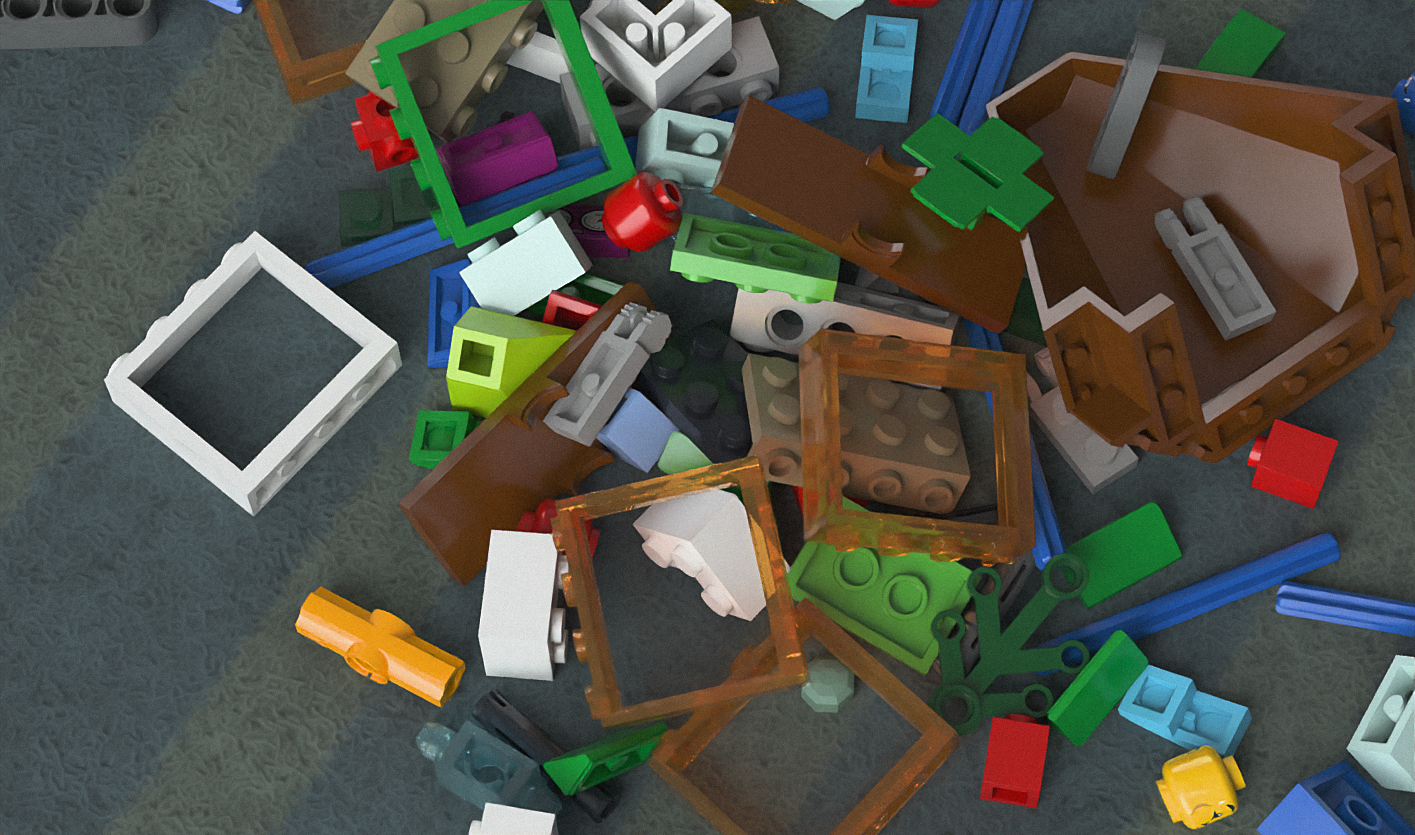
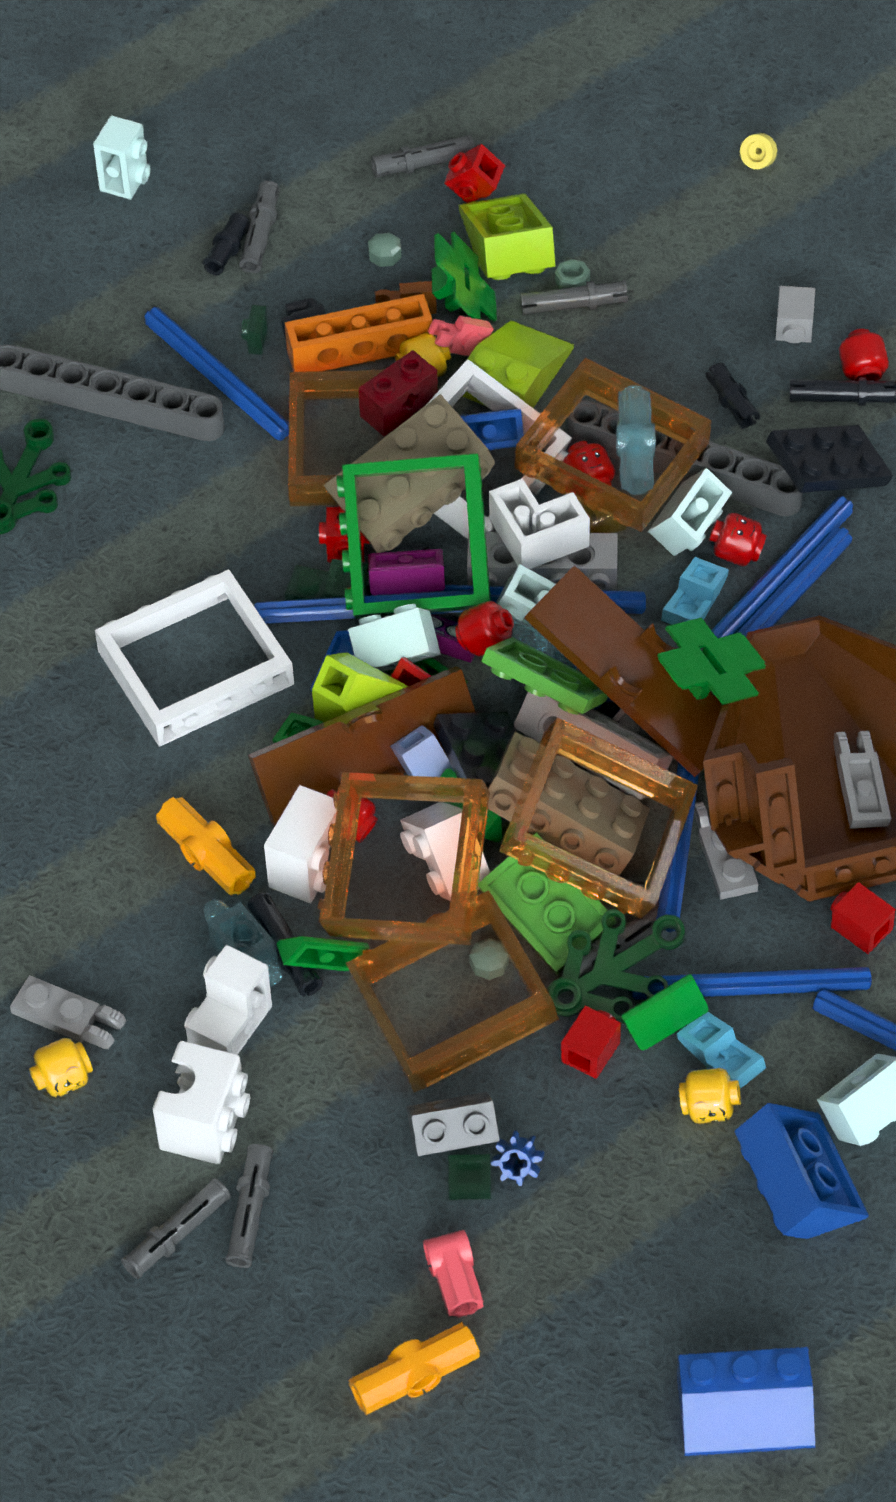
camera: 20 degrees right, 10 degrees down
(608, 372) = (417, 716): light grey hinge -> none
(1124, 553) = (721, 939): green slope -> none
(1126, 104) = (838, 655): dark grey beam -> none

